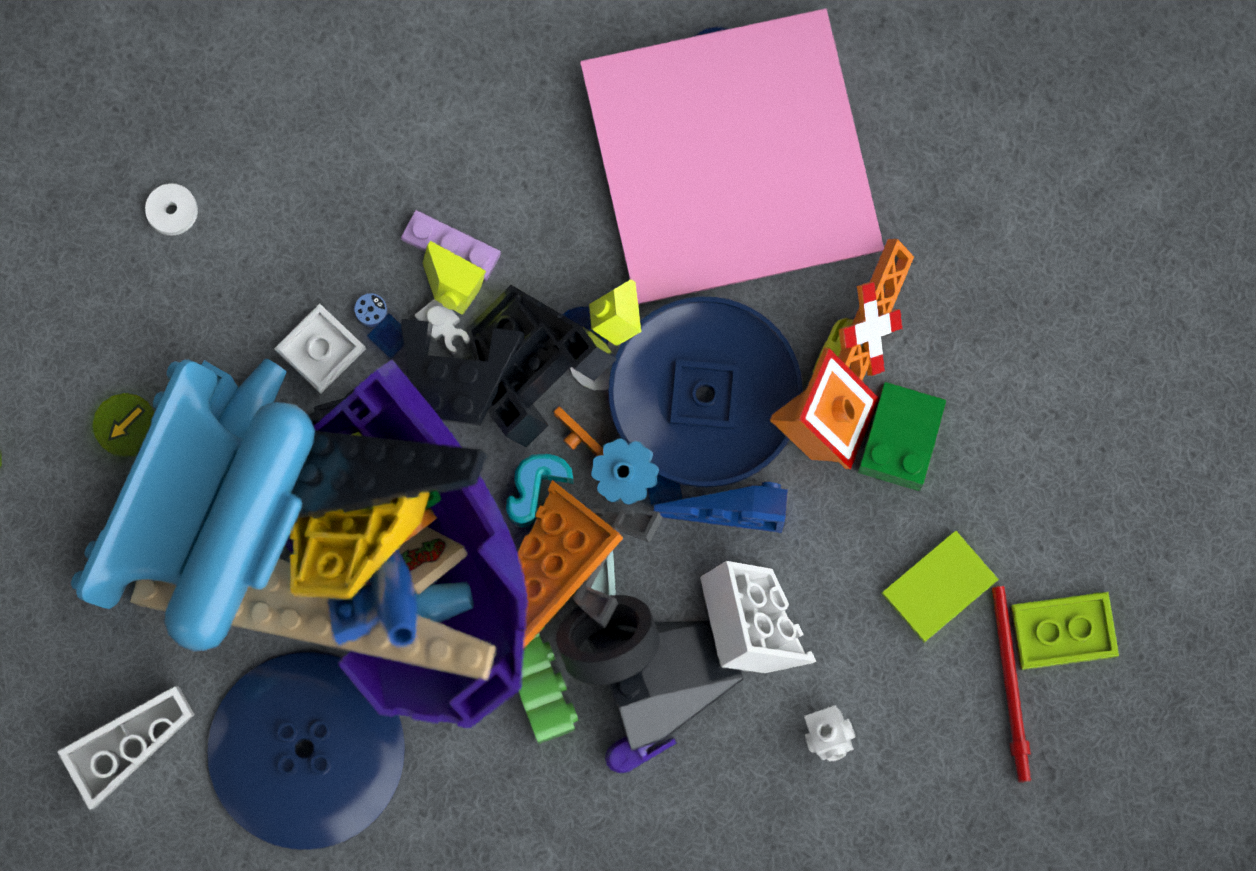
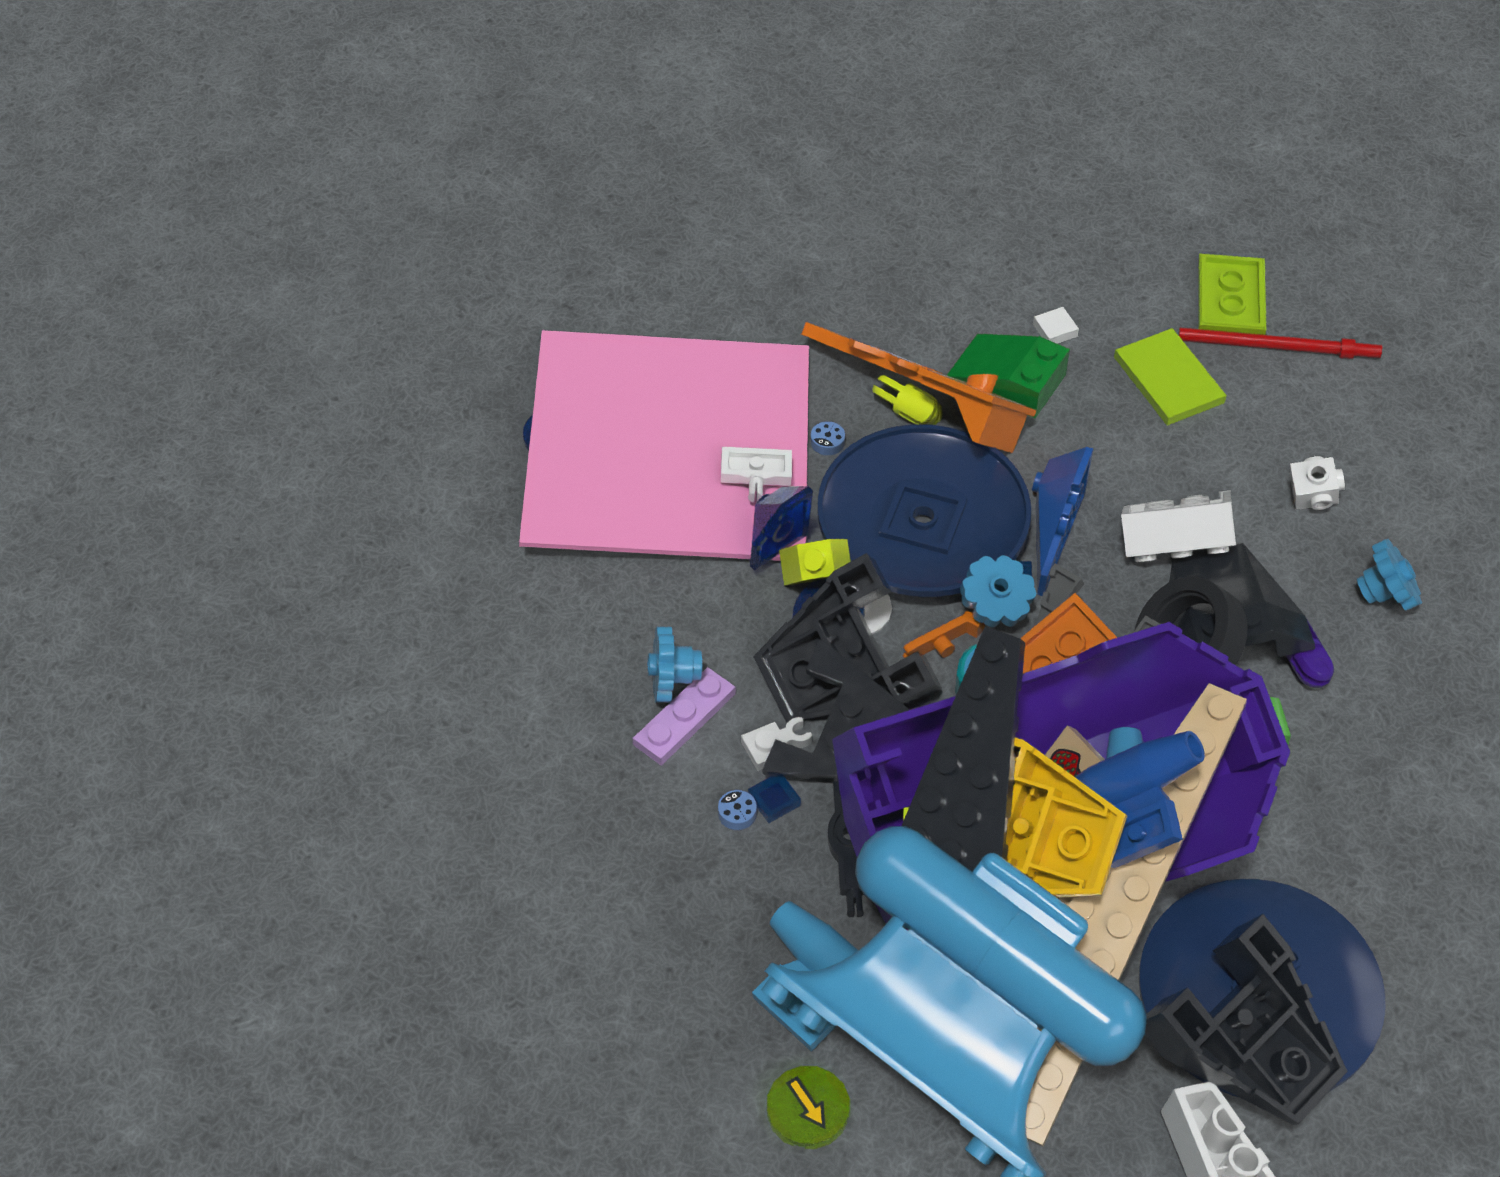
camera: 75 degrees left, 25 degrees down
(171, 223) = (546, 1014): white piece -> none
(231, 747) = (1261, 1036): none -> black wedge
(320, 348) = (770, 868): white plate -> none
(452, 278) = (726, 714): neon yellow slope -> none
(482, 220) = (671, 664): none -> dark azure plant
(650, 267) = (779, 522): none -> clear blue slope
(712, 237) = (756, 468): none -> white plate
(734, 814) = (1390, 578): none -> dark azure plant
(780, 292) = (827, 438): none -> medium blue tile
(975, 470) = (1056, 325): none -> white tile

